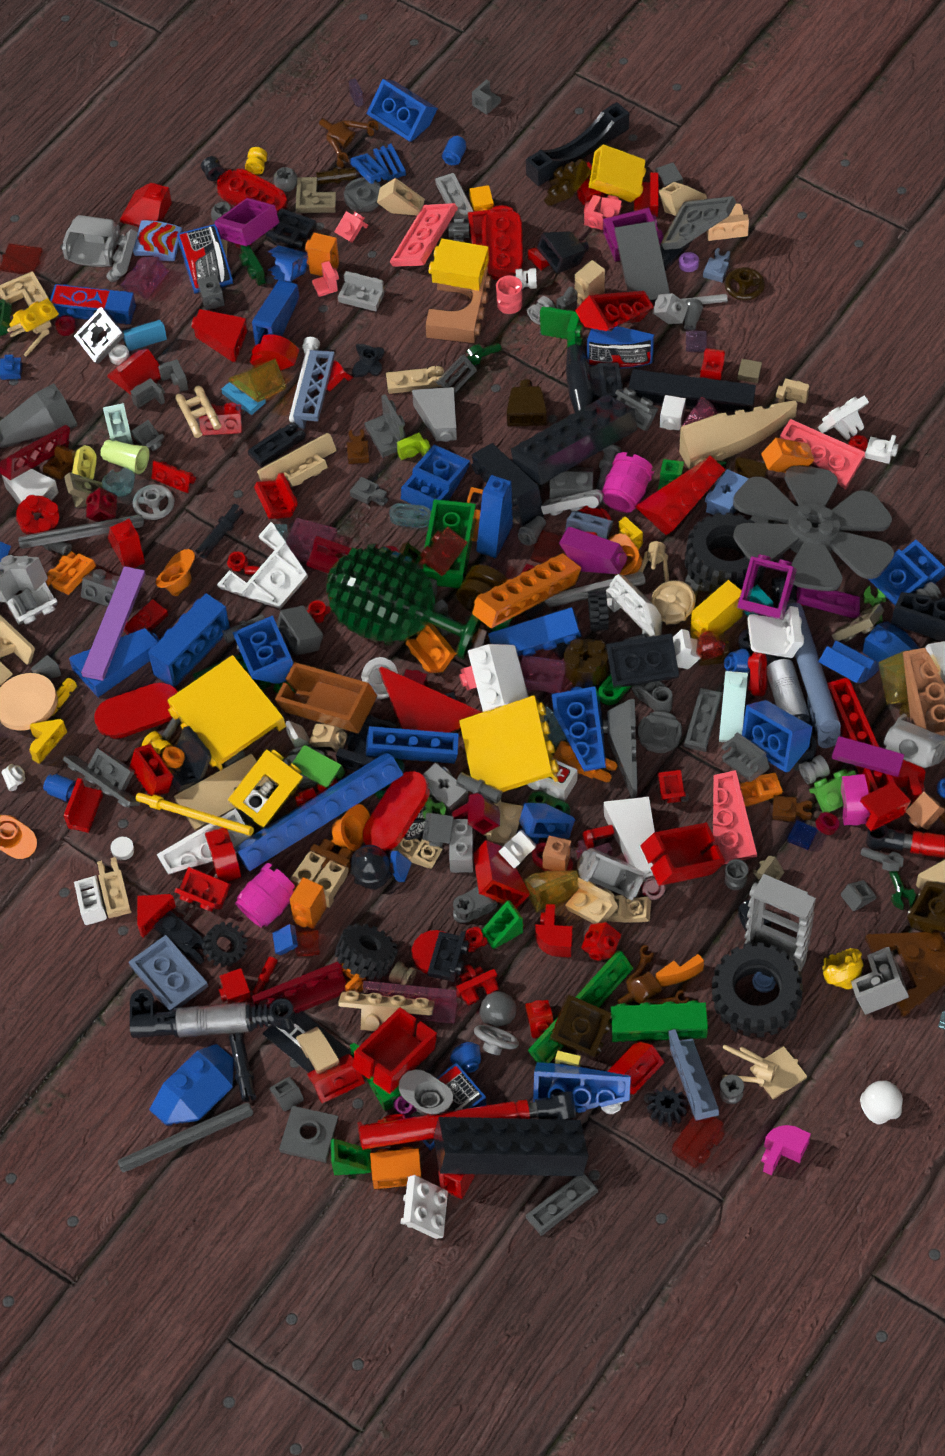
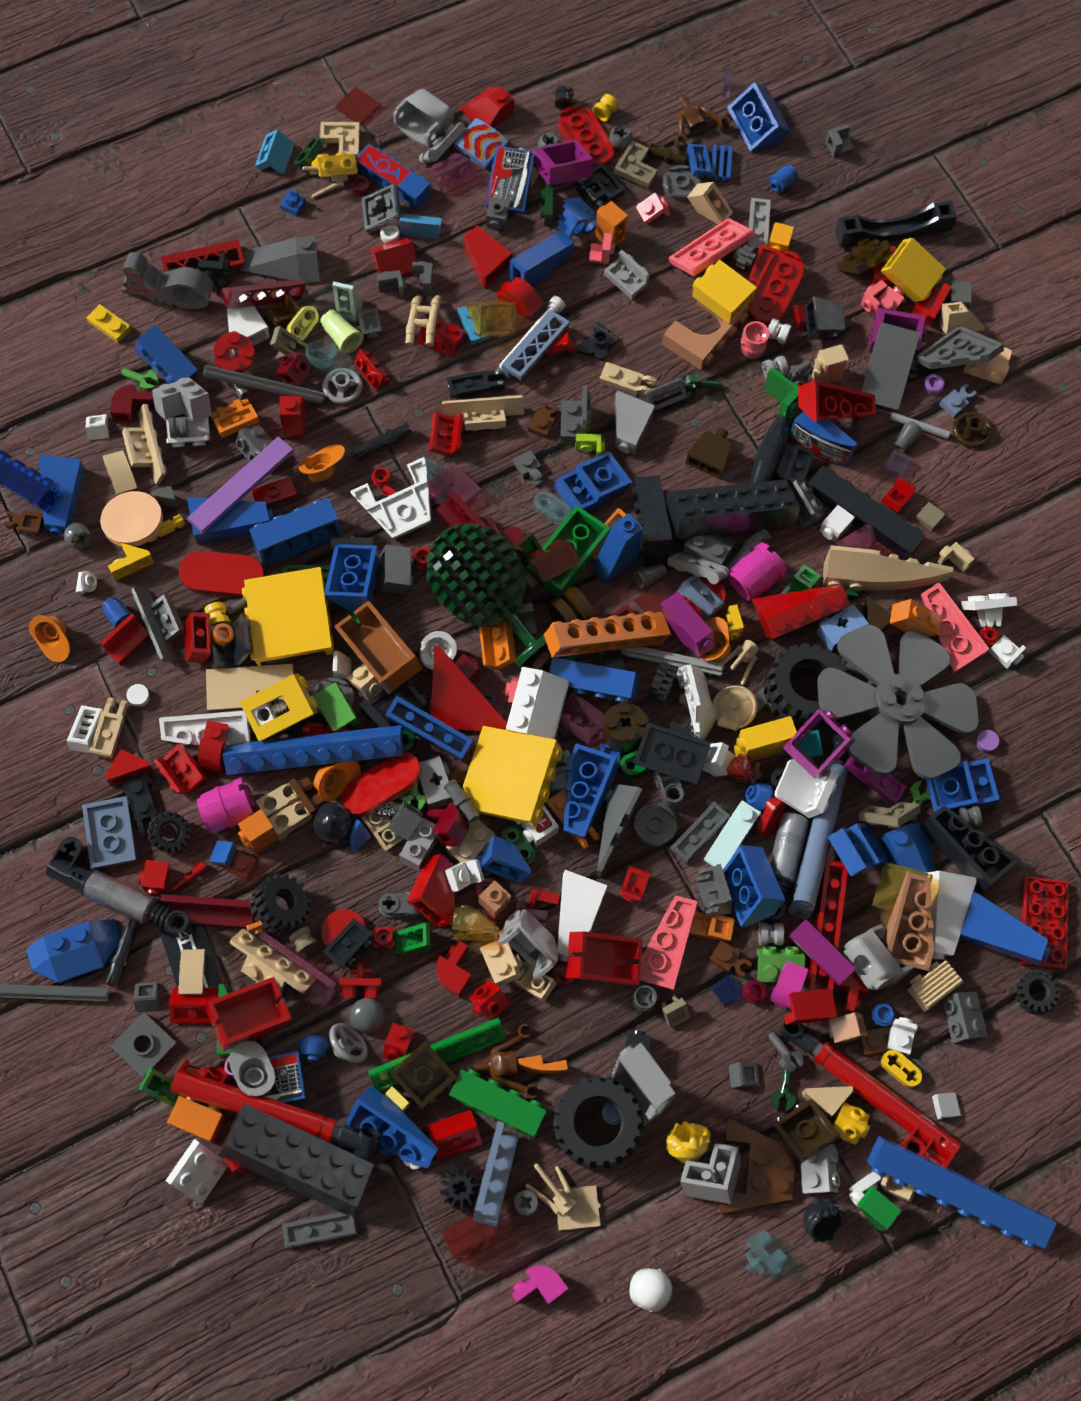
camera: 20 degrees right, 10 degrees up
(158, 803) = (189, 671): yellow bar -> none
(670, 308) = (889, 423): light grey brick -> none
(906, 528) = (987, 741): none -> medium lavender tile

